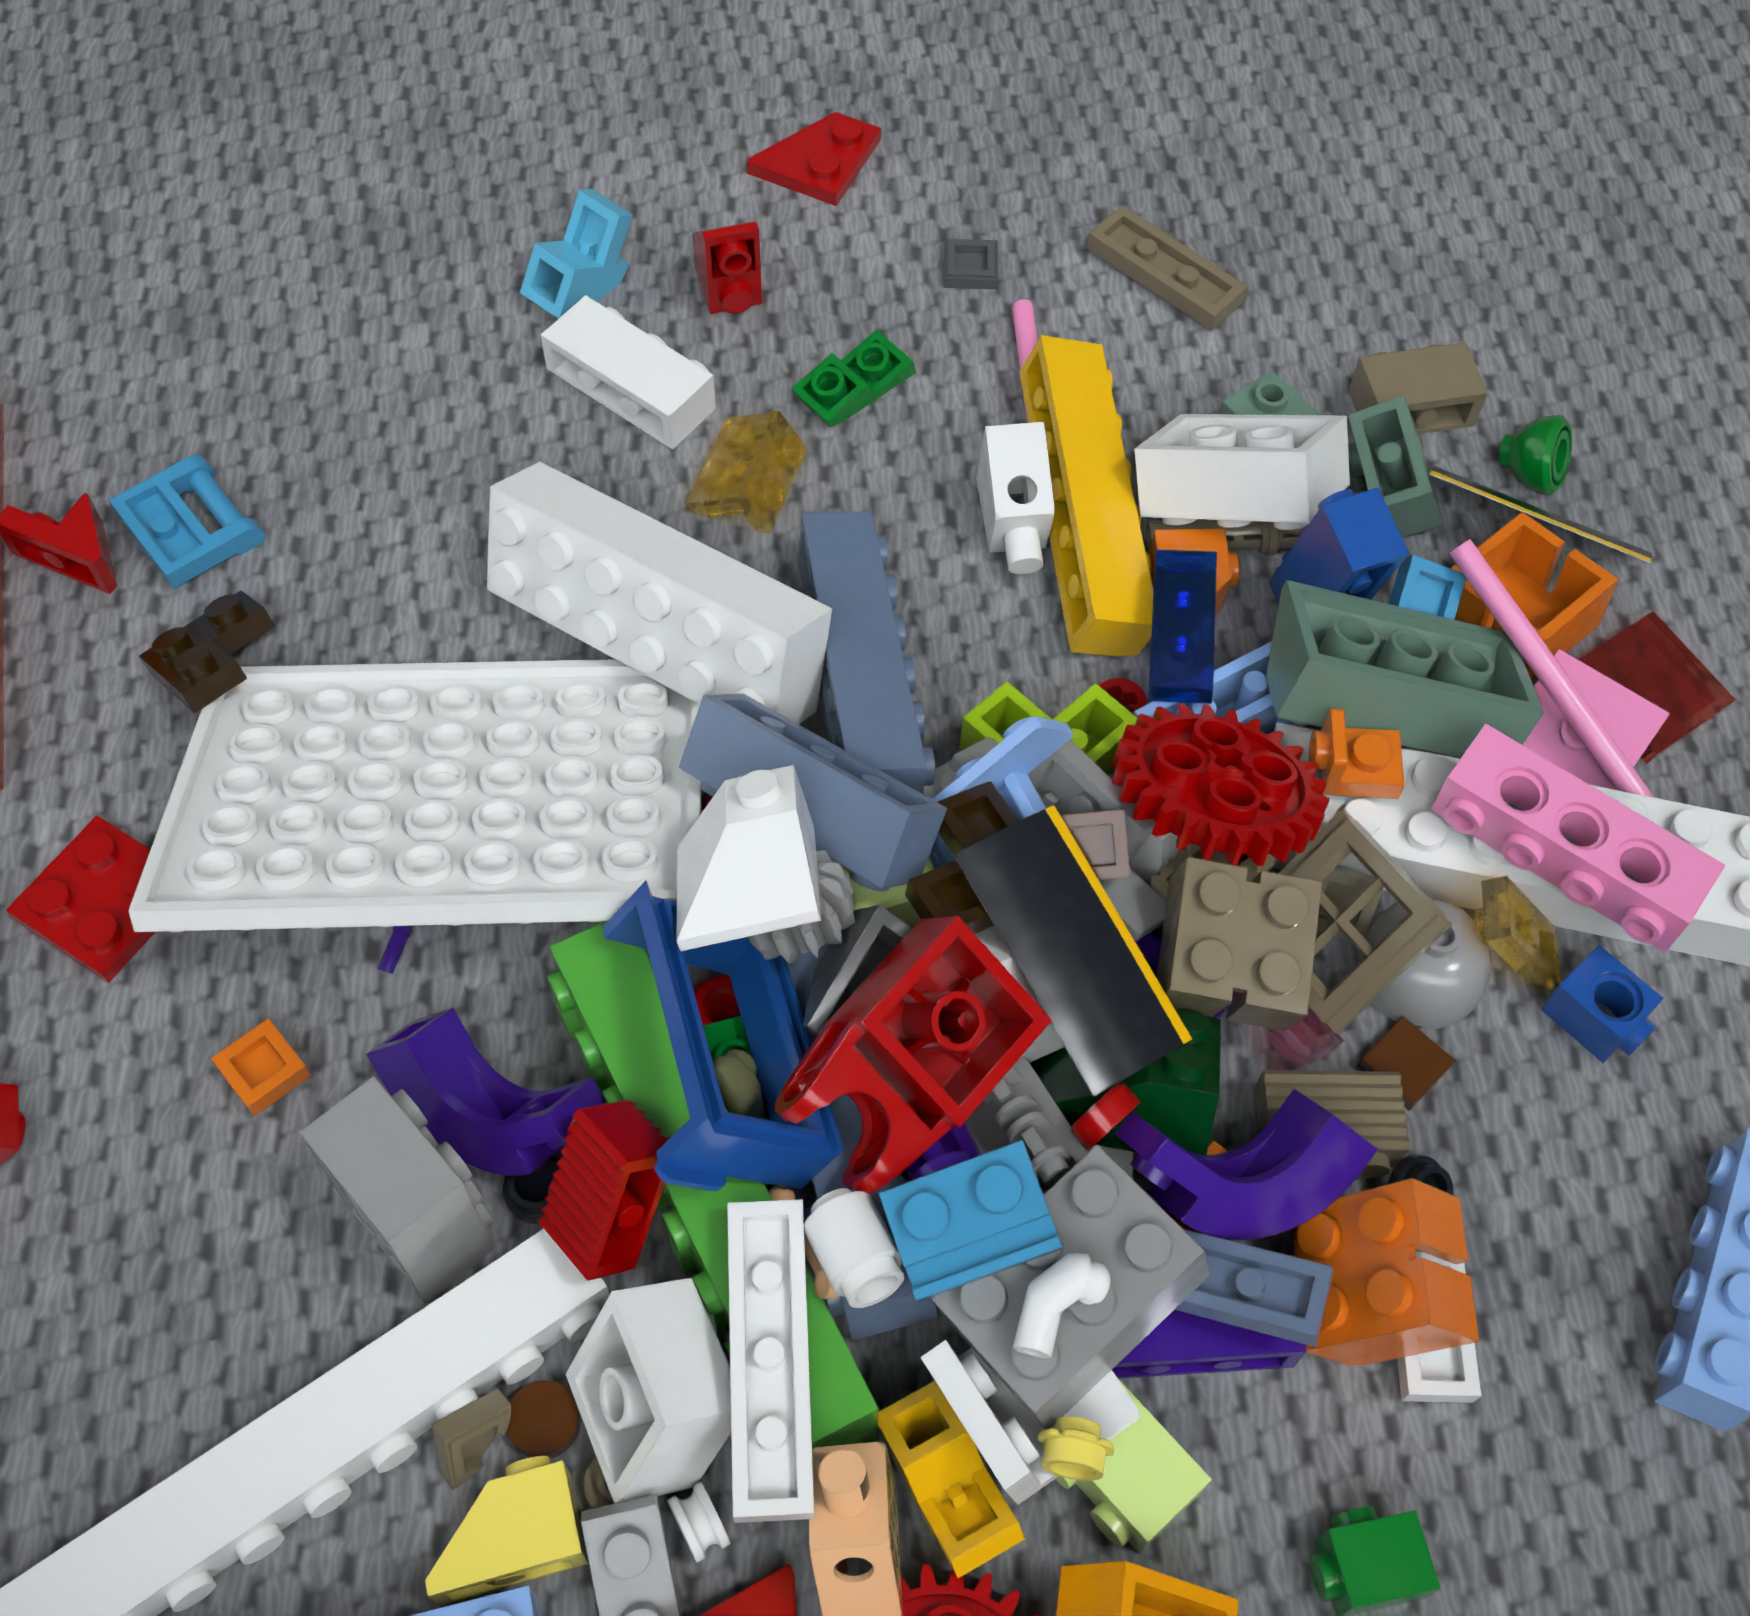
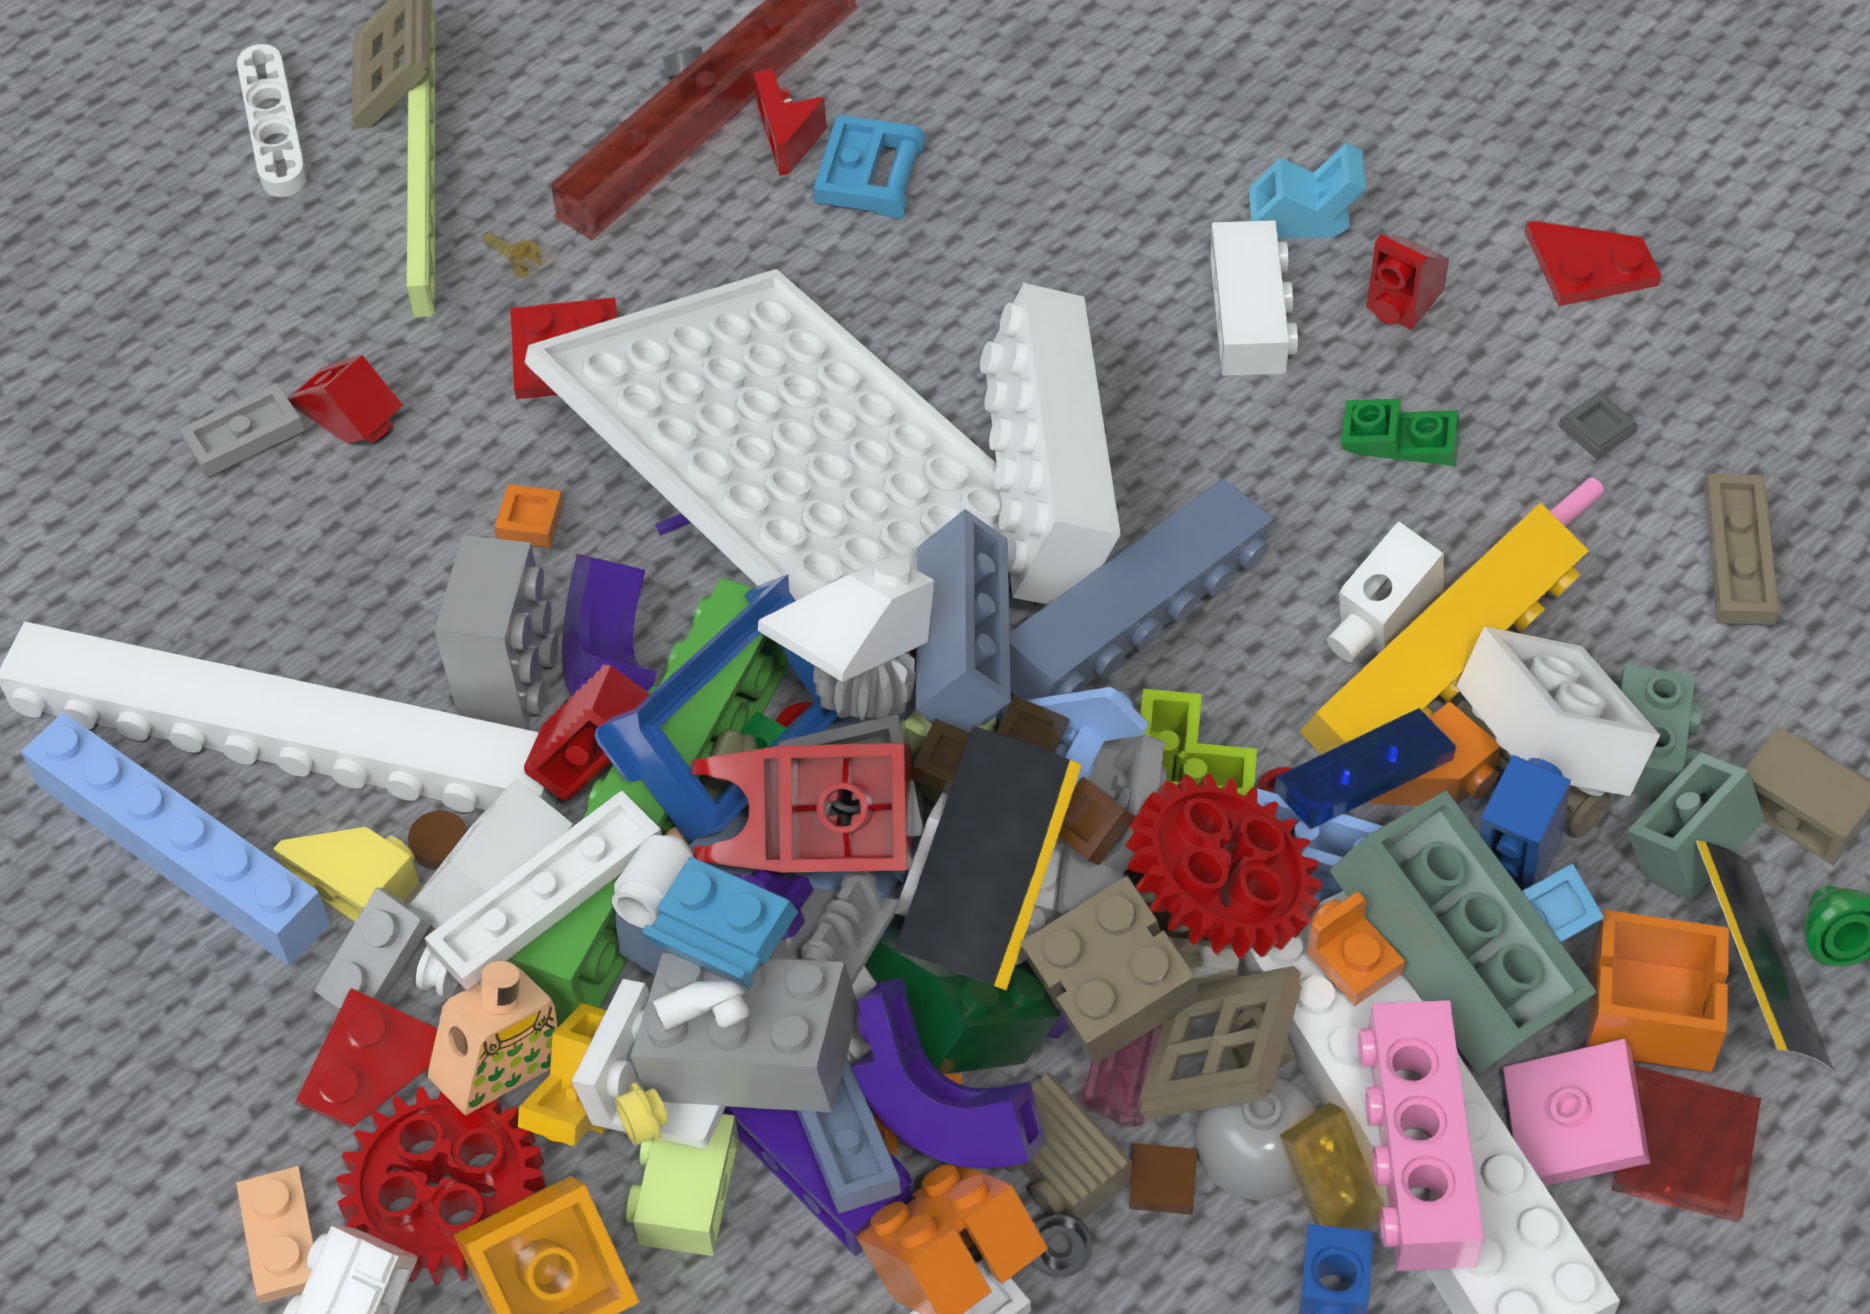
camera: 55 degrees right, 5 degrees down
(197, 658) = (767, 250): dark brown plate -> none
(467, 1434) = (391, 804): dark tan tile -> none
(749, 470) = (1247, 431): clear yellow bracket -> none
(1104, 1115) = (887, 963): red tile -> none
(1548, 670) = (1580, 1039): bright pink piece -> none

